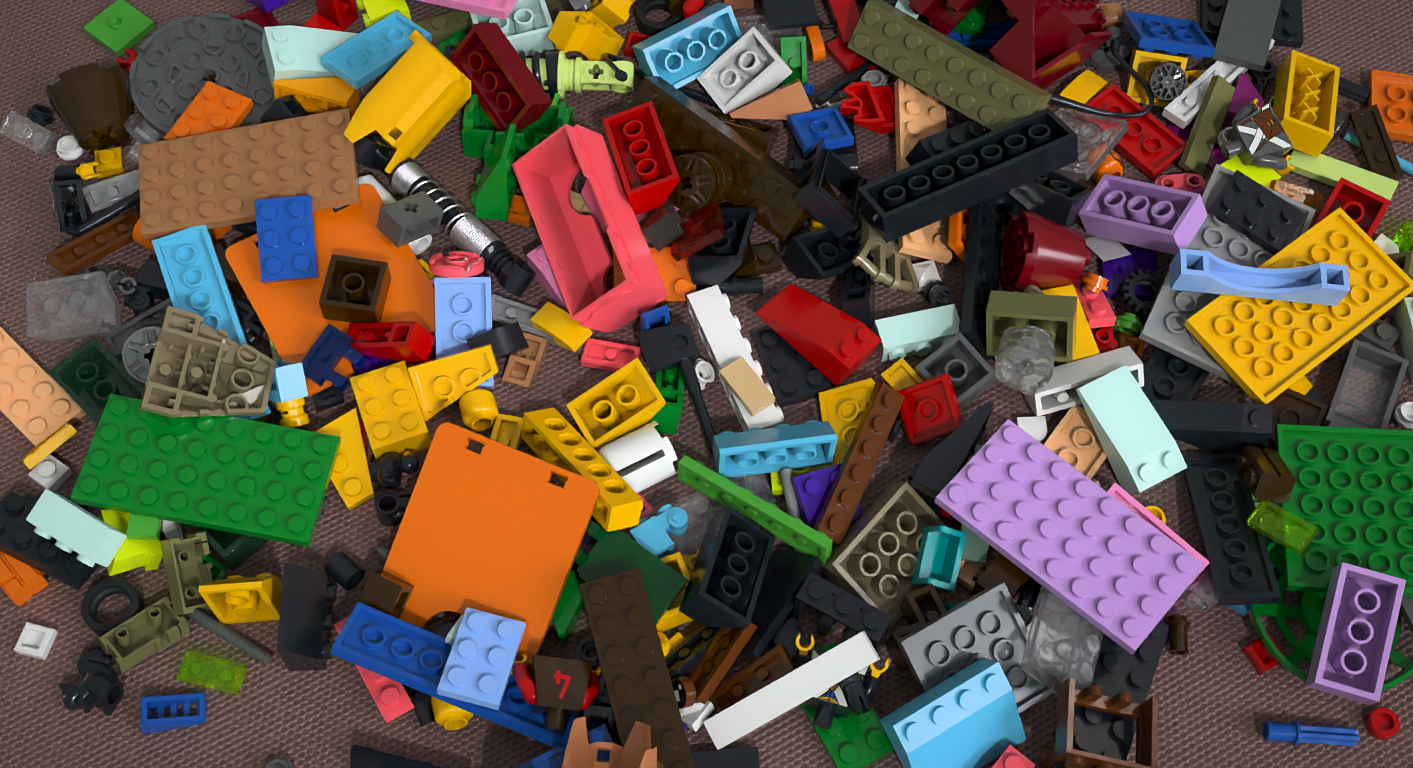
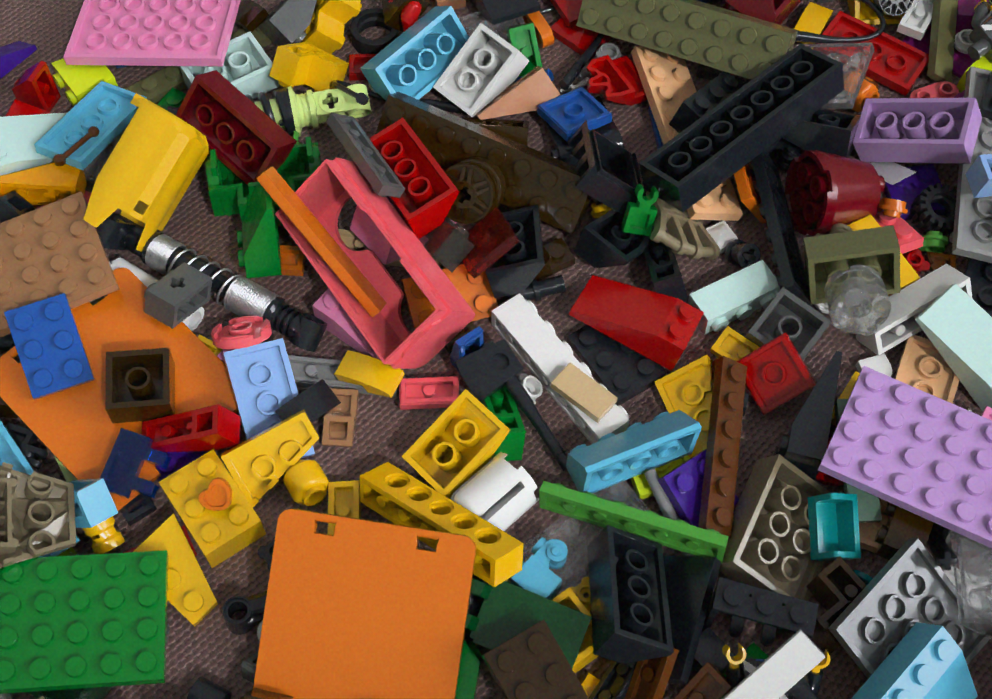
camera: 15 degrees left, 0 degrees up
(338, 75) = (60, 159): none -> reddish brown hinge
(390, 468) = (227, 571): black animal -> none
(395, 400) = (217, 495): none -> orange piece
(546, 198) = (321, 241): none -> orange tile
(606, 128) = (365, 155): none -> dark grey plate
(849, 237) = (640, 216): none -> green plate

